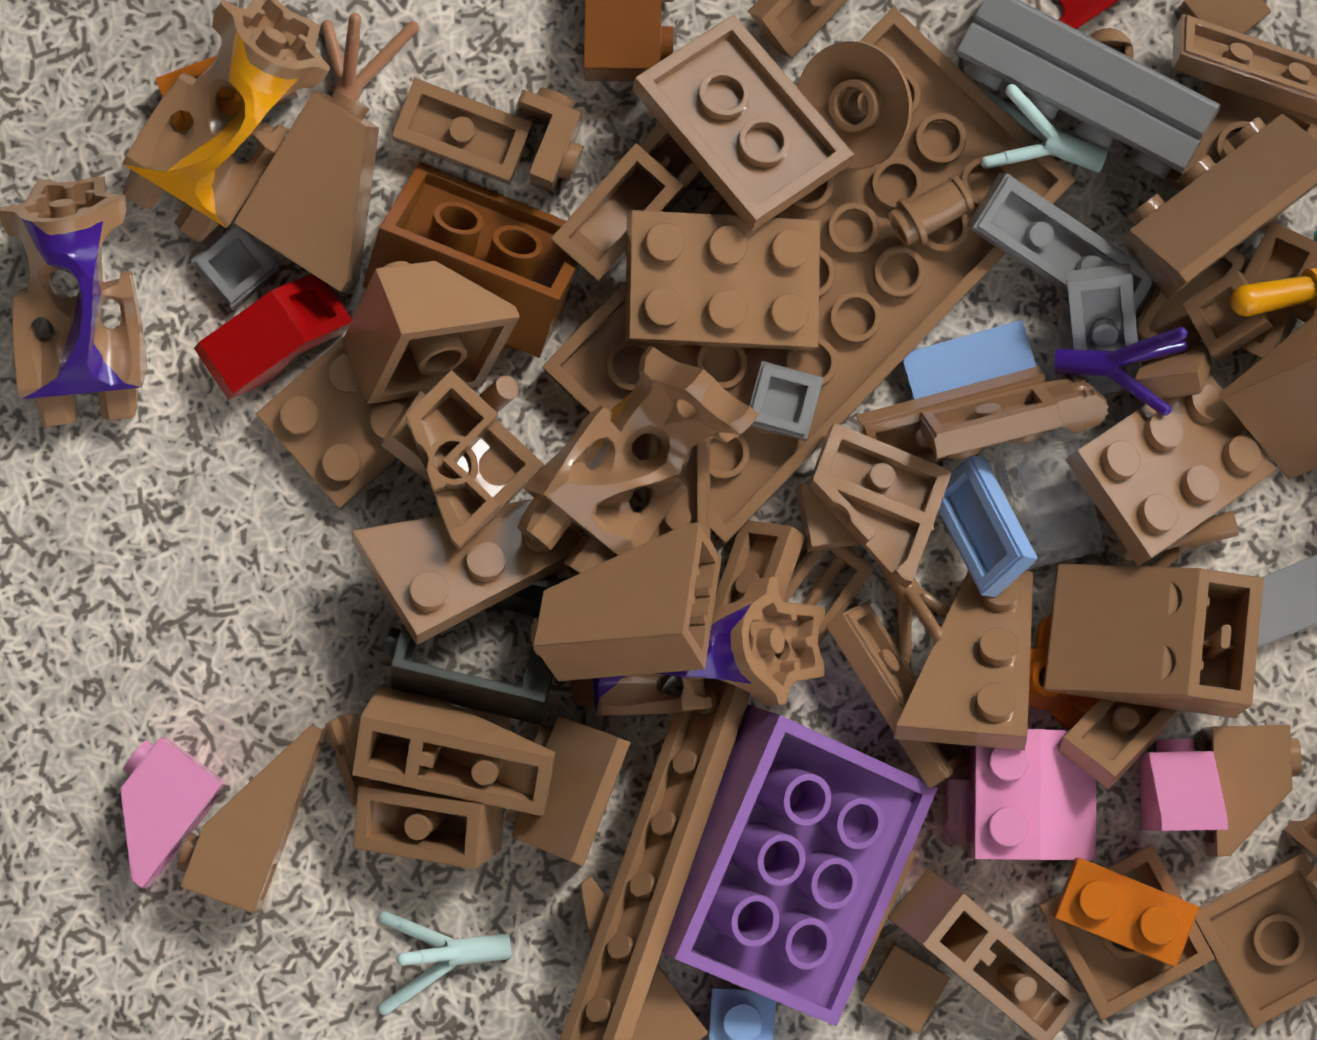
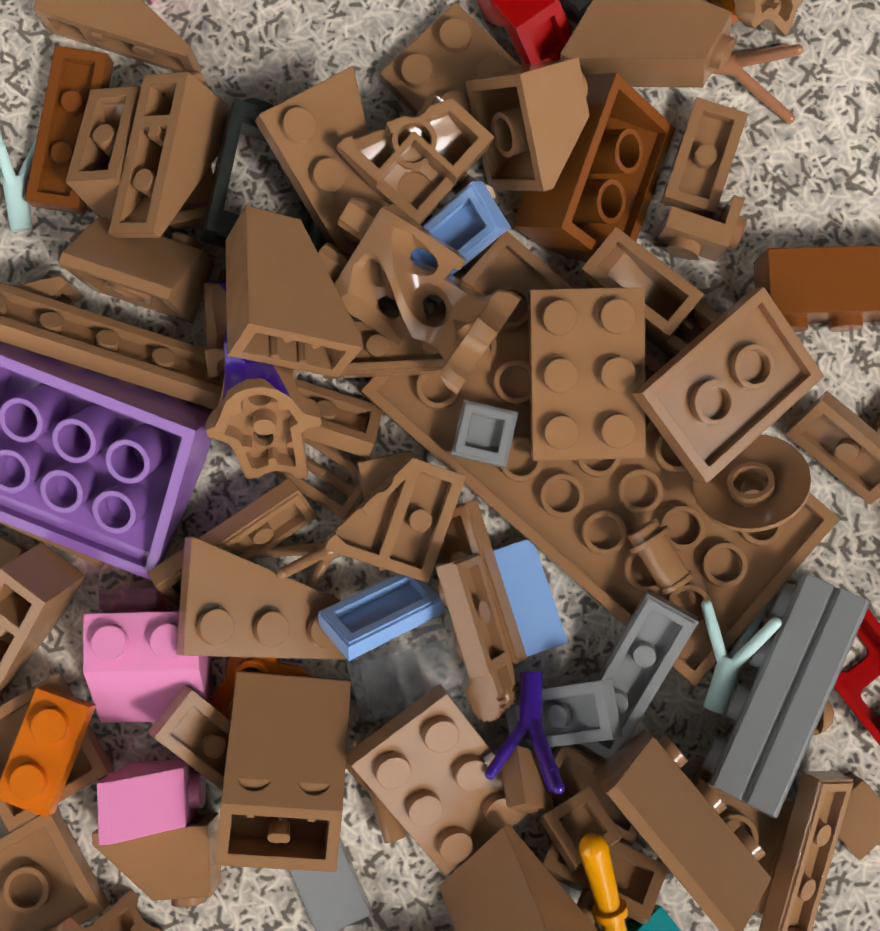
camera: 95 degrees right, 0 degrees up
(391, 884) = (67, 92): none -> dark orange plate
(540, 409) = (466, 224): none -> light blue tile

